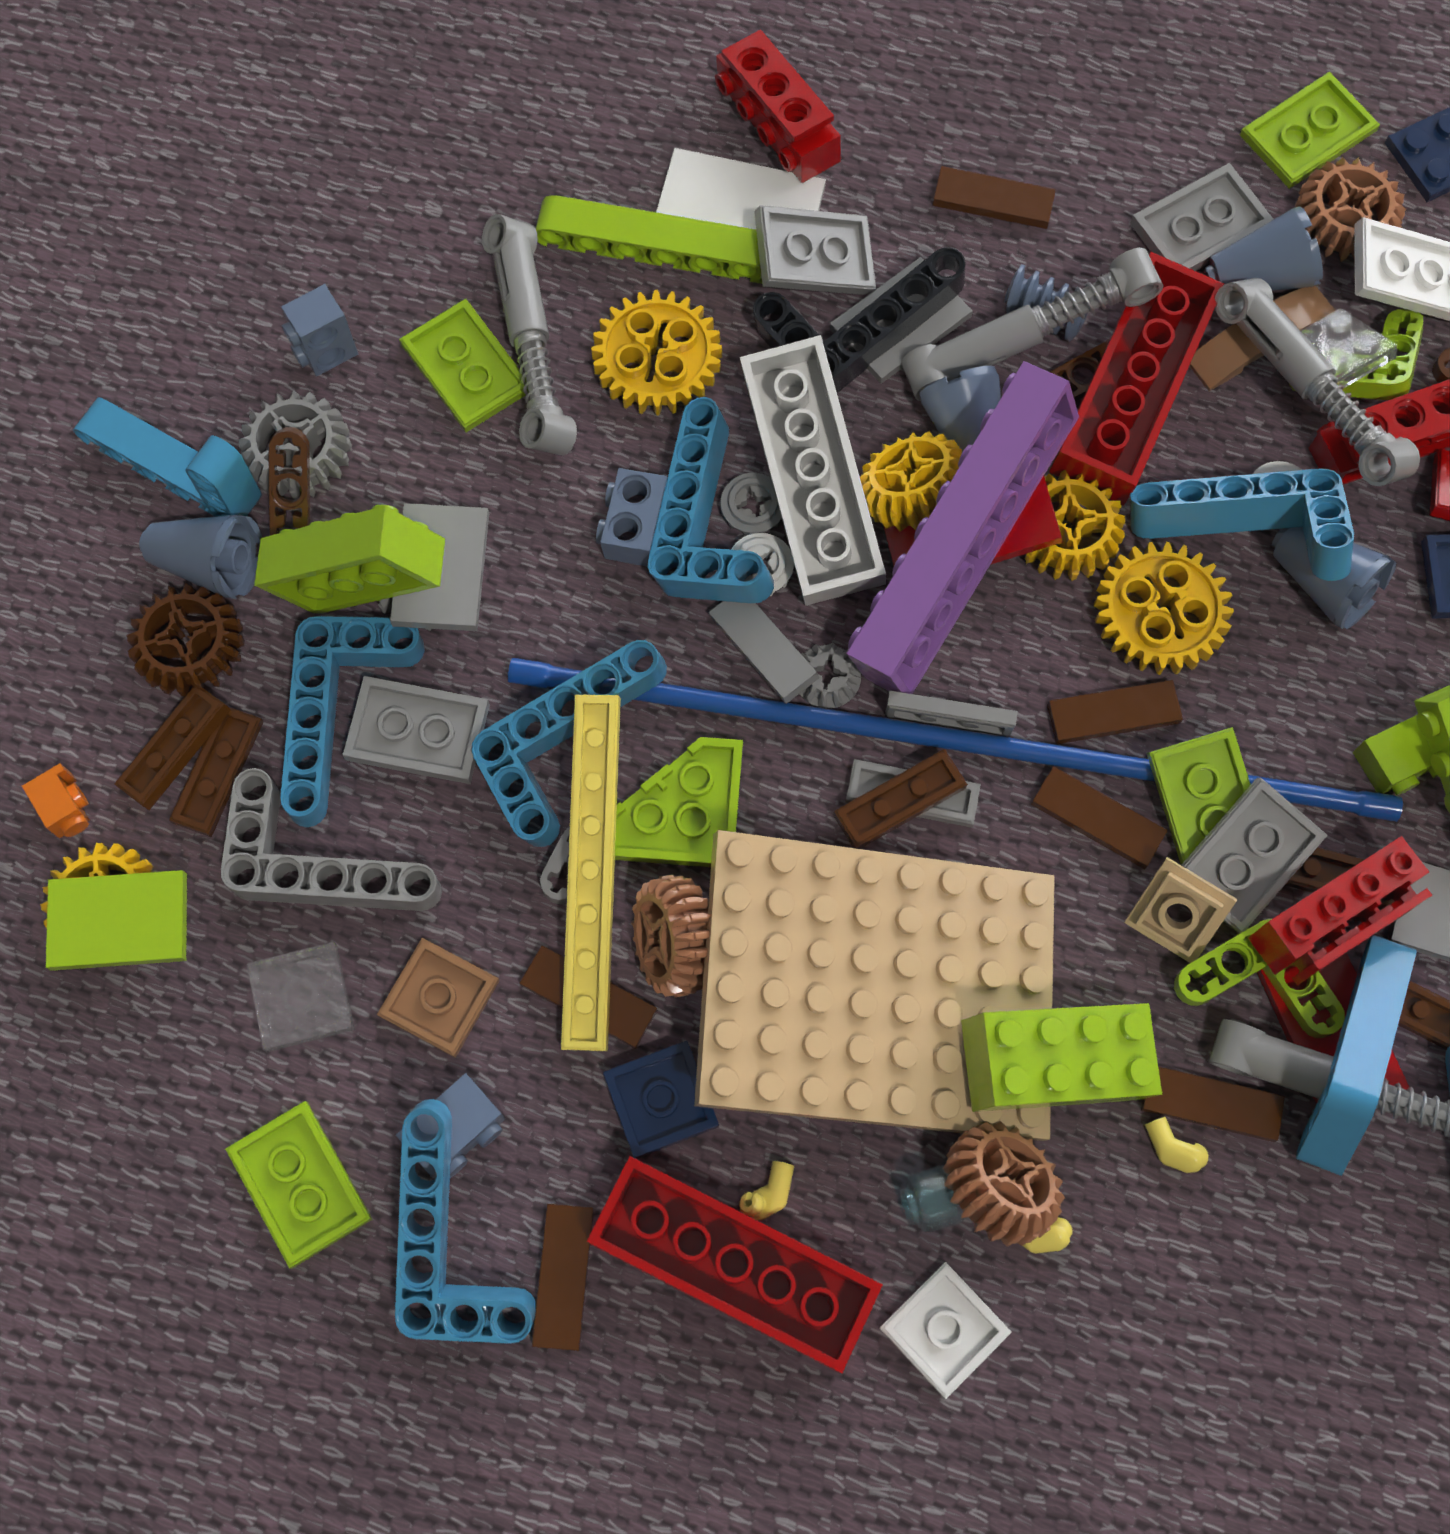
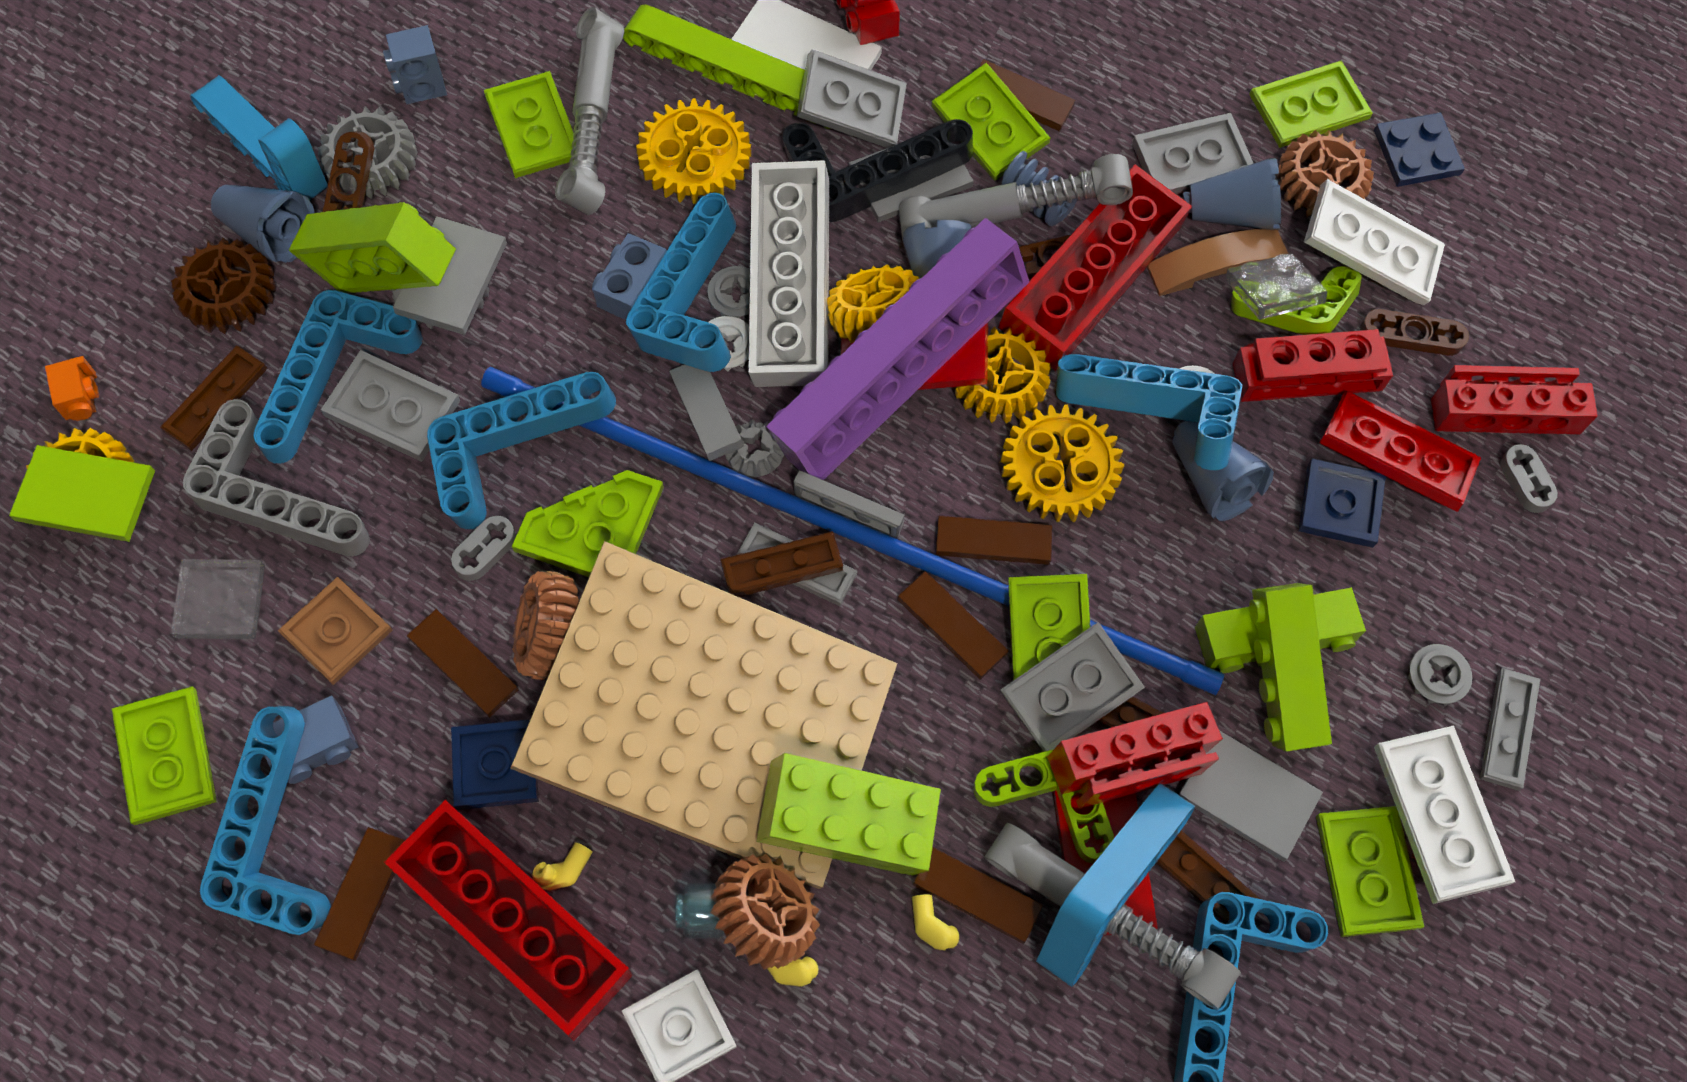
camera: 10 degrees right, 5 degrees down
(172, 747) = (182, 368): reddish brown tile -> none
(591, 873) = (493, 557): light yellow tile -> none
(976, 227) = (996, 117): none -> lime tile
(1179, 885) = (1018, 717): tan piece -> none
(1252, 309) = (1210, 233): light grey piece -> none

